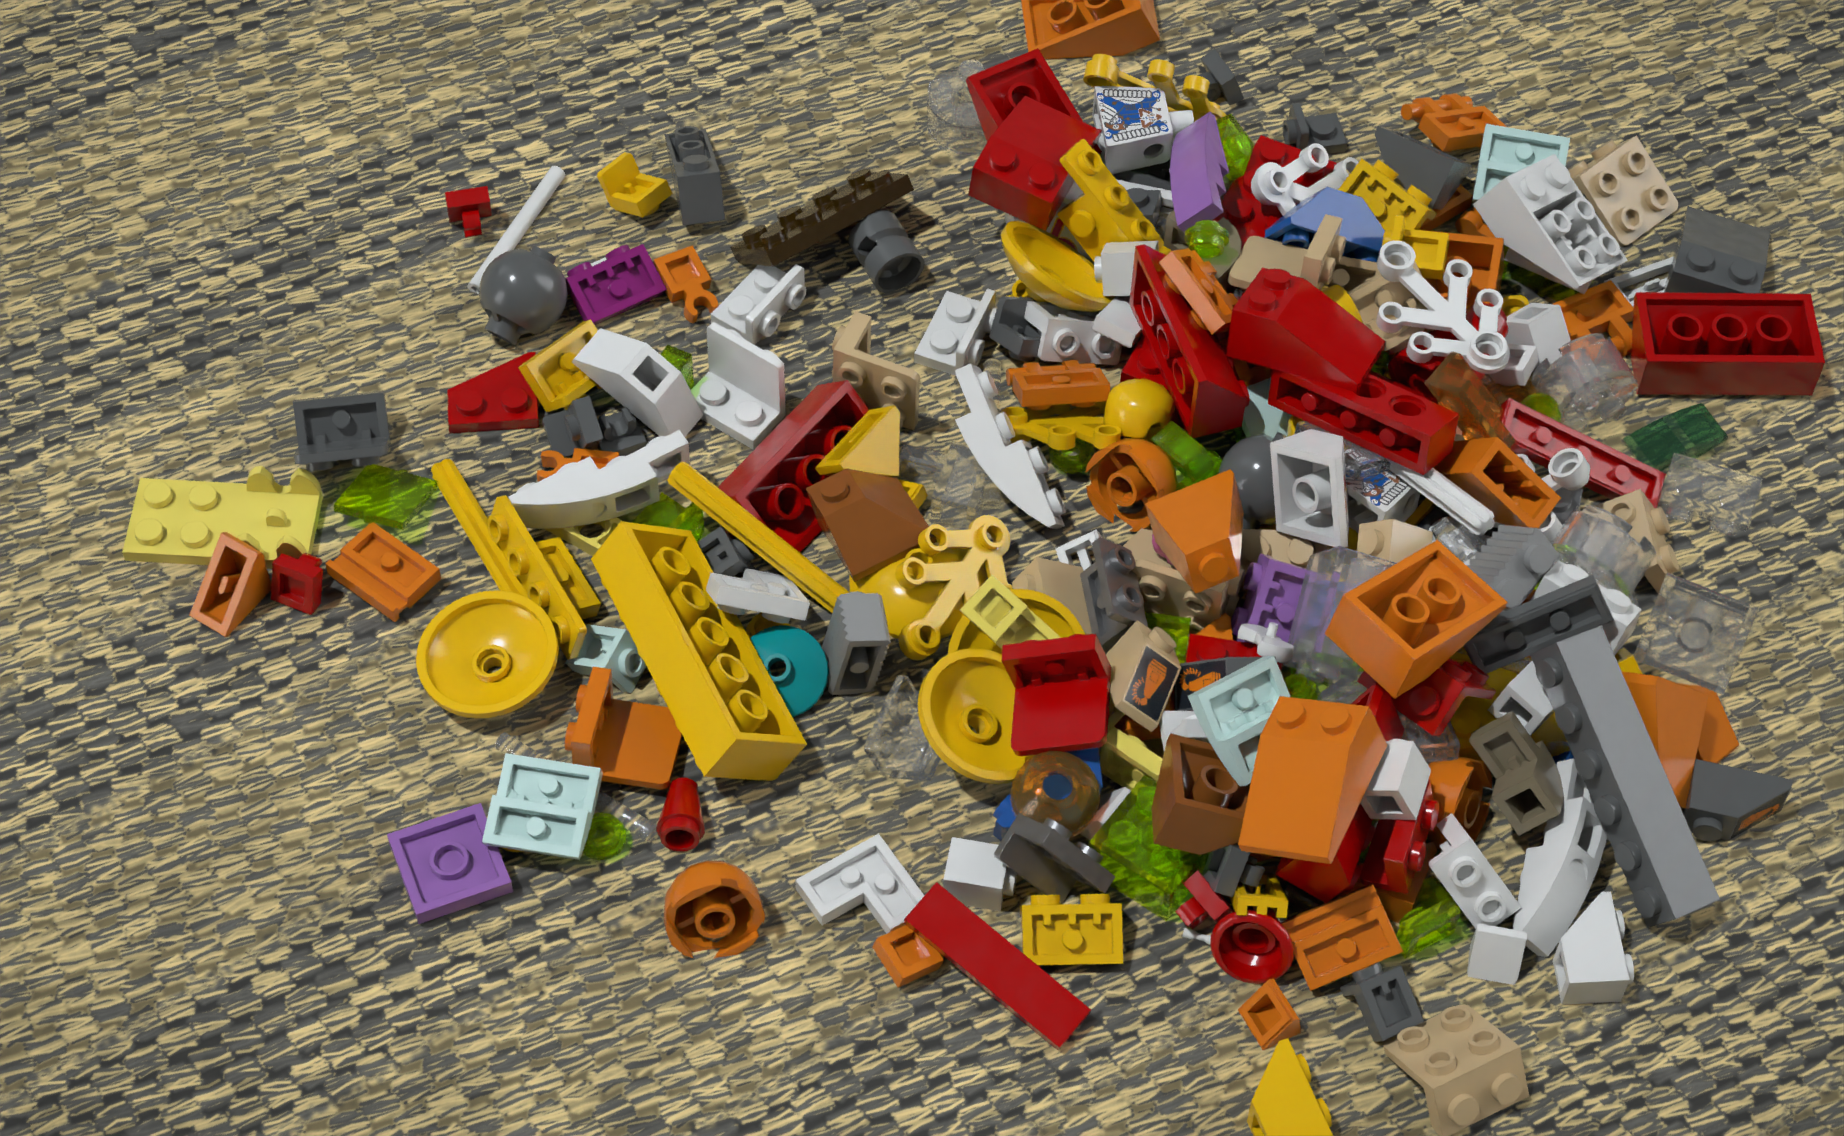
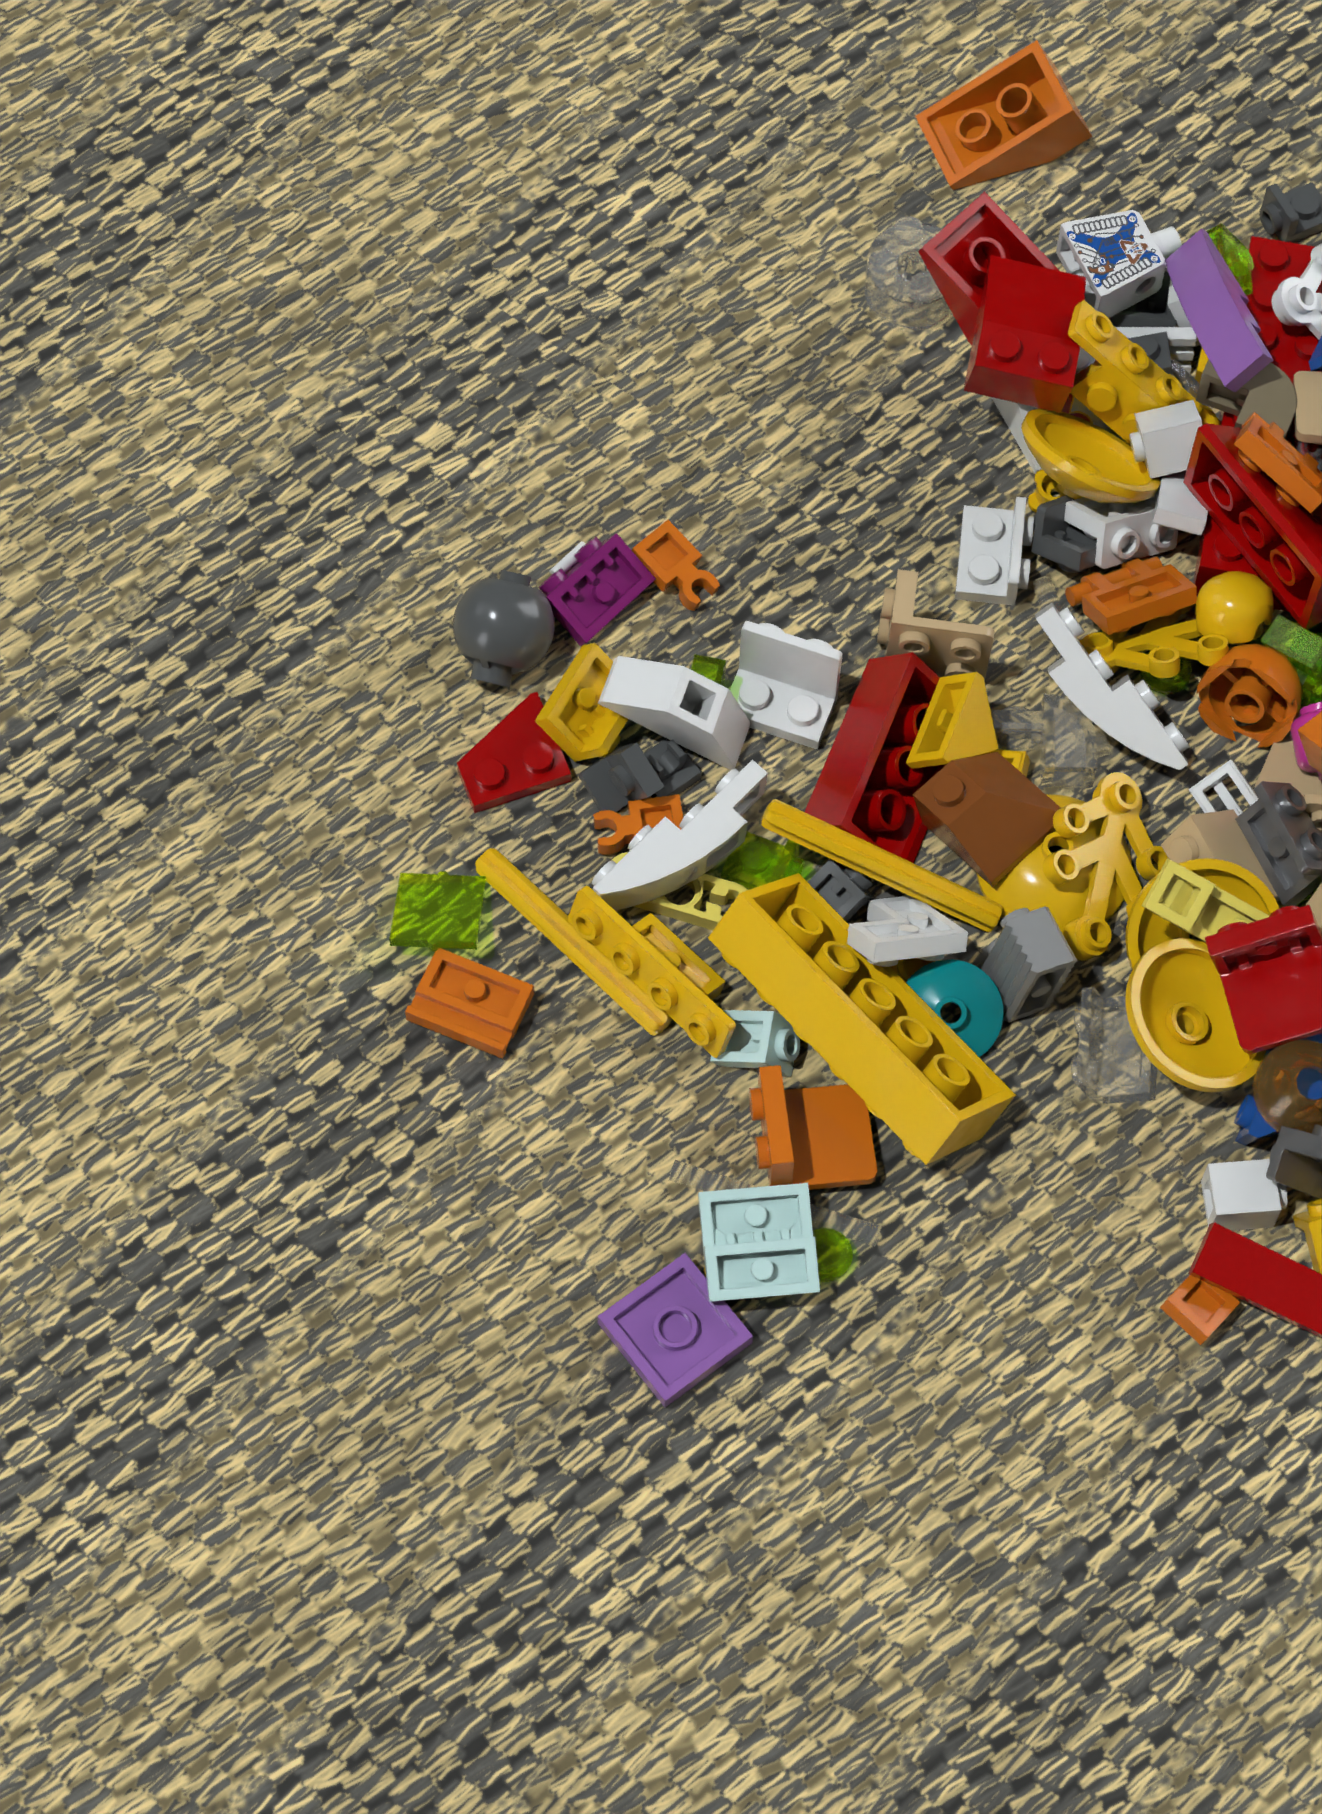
camera: 15 degrees left, 10 degrees up
(185, 518) = (268, 986): light yellow hinge -> none
(231, 585) = (309, 1066): orange slope -> none
(297, 582) = (382, 1040): red tile -> none
(341, 429) = (364, 848): dark grey bracket -> none
(469, 207) = (397, 531): red tile -> none
(481, 634) = (624, 1045): yellow dish -> none
(522, 221) = (456, 543): white piece -> none
(631, 190) = (571, 463): yellow bracket -> none
(681, 816) = (904, 1210): red cone -> none
(695, 176) = (636, 428): dark grey slope -> none
(713, 902) = (989, 1302): orange cylinder -> none
(761, 301) = (761, 569): white bracket -> none
(828, 214) = (800, 452): dark brown plate -> none
(861, 875) = (1126, 1226): white plate -> none
(886, 251) = (879, 470): dark grey wheel -> none
(1104, 72) = (1068, 205): yellow plant -> none
(1207, 238) = (1263, 394): clear neon green plate -> none
(1221, 79) = (1170, 172): dark grey tile -> none

